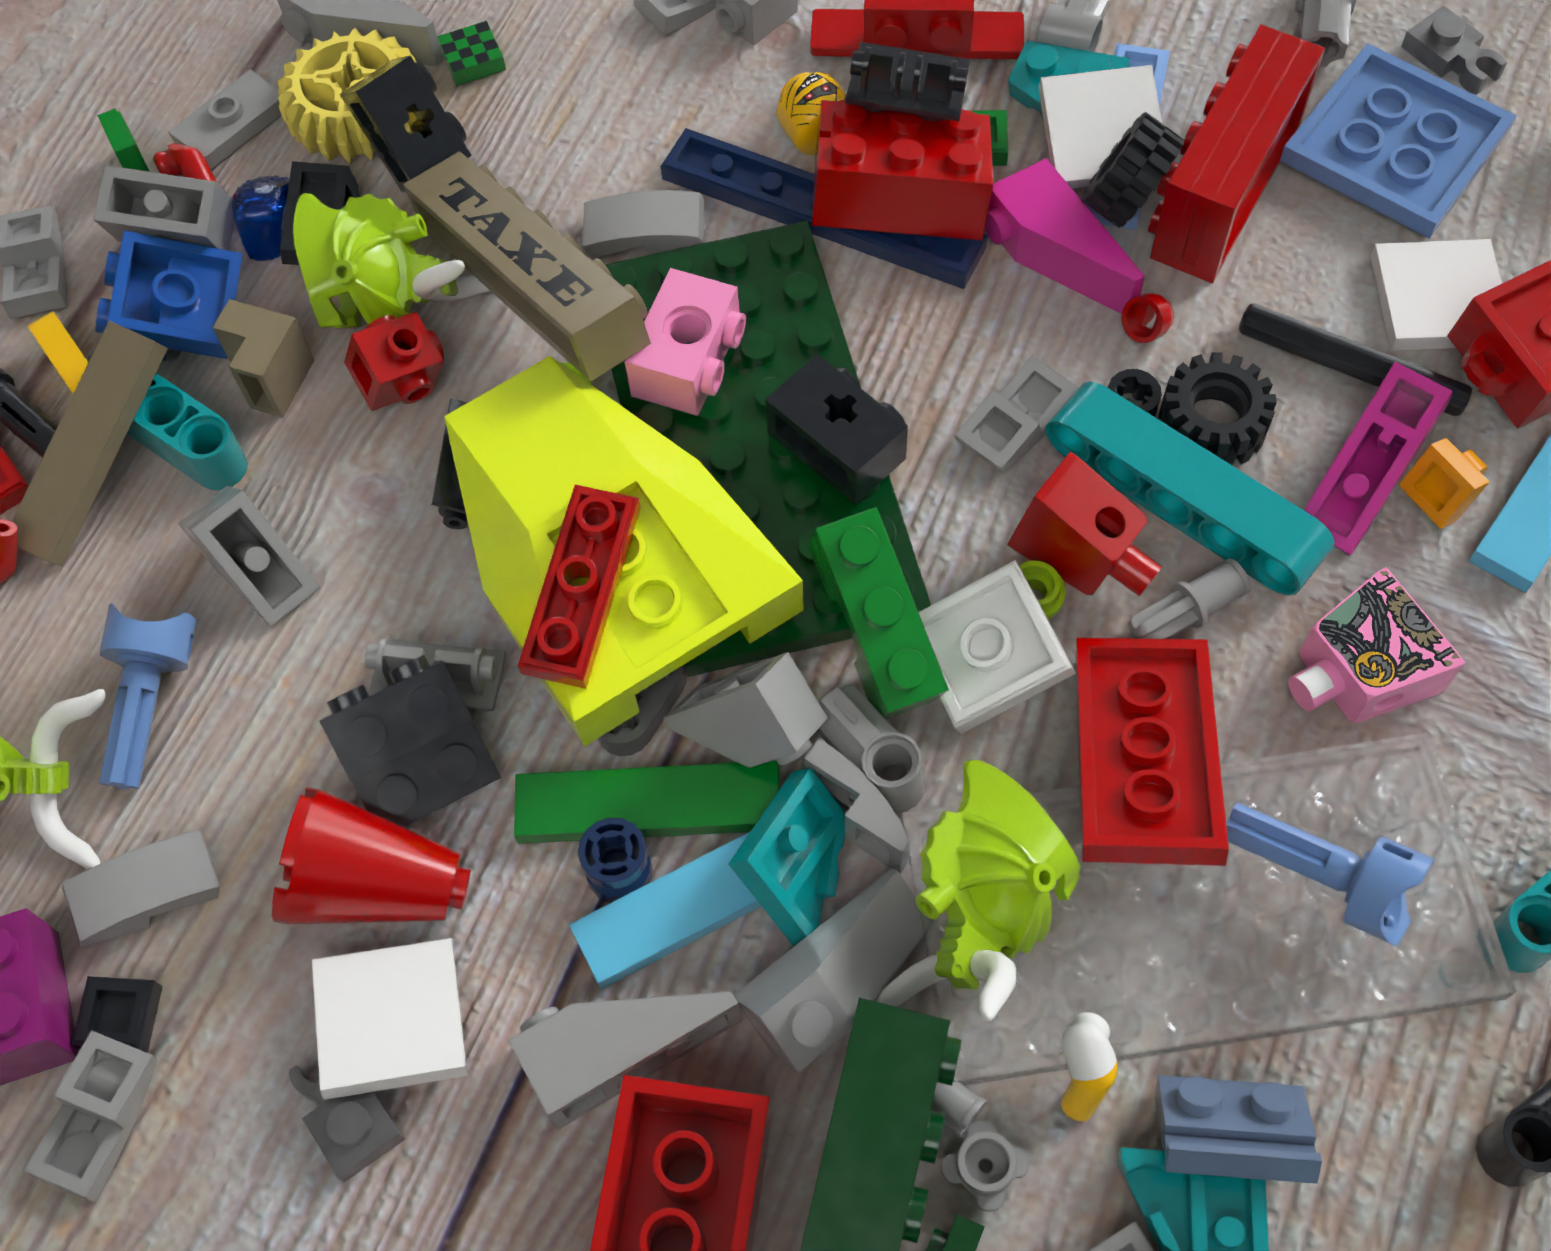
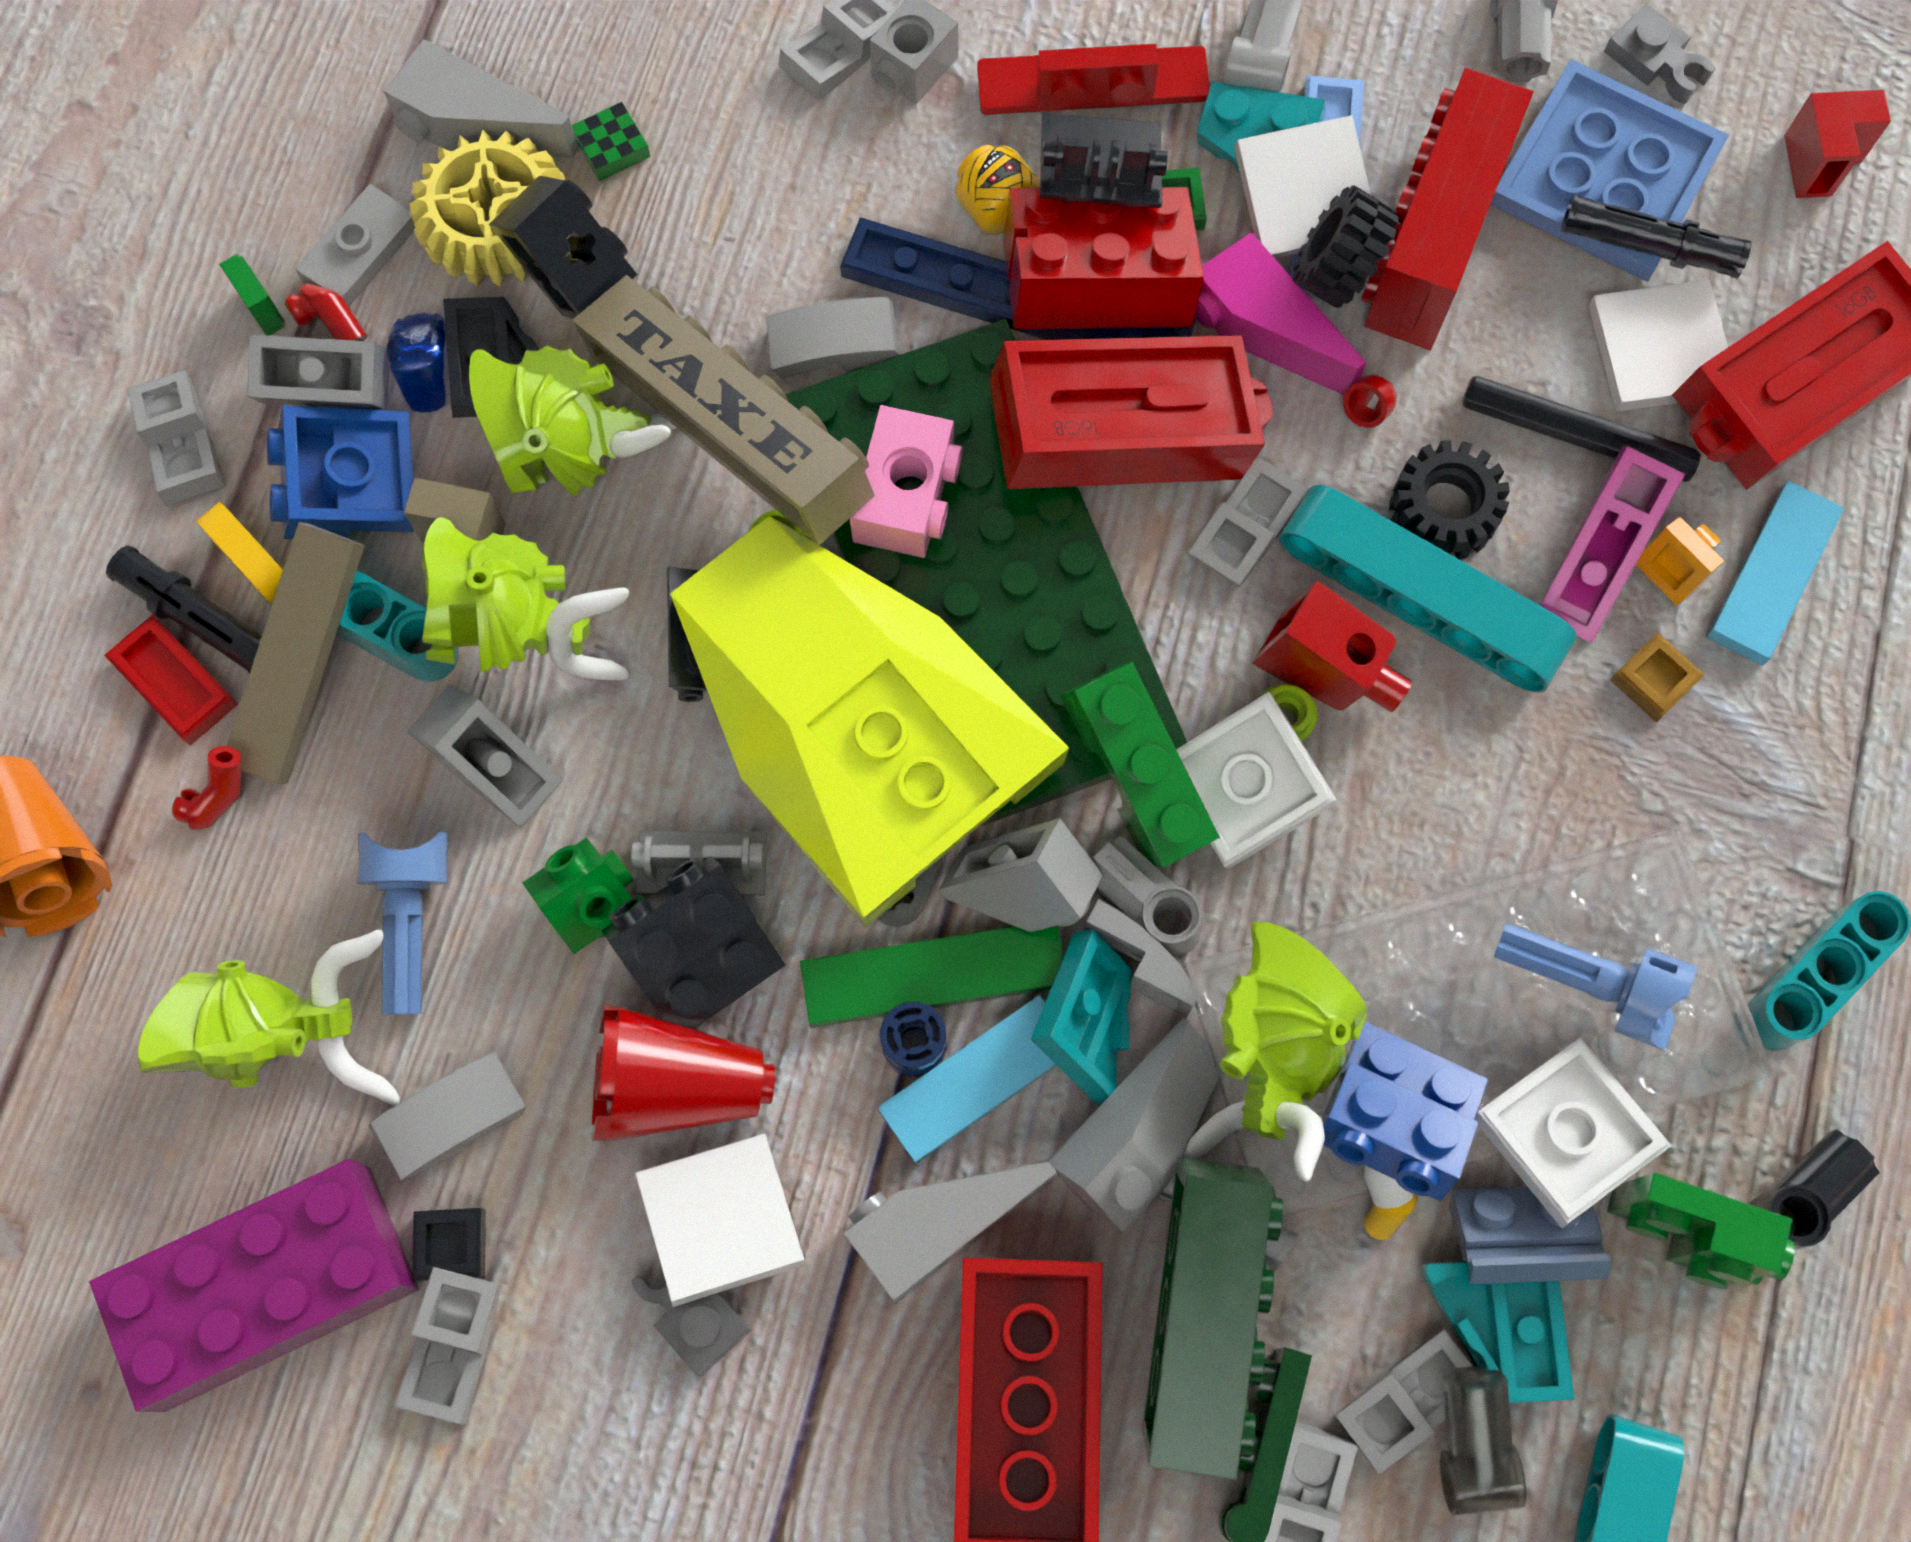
camera: 10 degrees left, 10 degrees up
(287, 407) = (496, 600): none -> lime helmet
(293, 681) = (580, 892): none -> green brick
(394, 360) = (600, 526): red brick -> none
(572, 618) = (842, 815): red tile -> none
(837, 428) = (1086, 593): black brick -> none
(908, 298) = (1127, 411): none -> red piece
(1006, 1162) = (1320, 1287): light grey plate -> none
(1106, 979) = (1403, 1112): none -> plate
(1141, 385) = (1370, 478): black bush -> none
(1149, 753) = (1417, 877): red plate -> none
(1191, 602) = (1439, 713): light grey axle -> none
(1289, 1023) = (1571, 1132): none -> white tile
(1374, 654) = (1622, 750): torso -> none
(1427, 584) = (1657, 677): none -> pearl gold tile
(1440, 191) = (1670, 240): none -> black pin
(1443, 1147) = (1710, 1232): none -> green plate

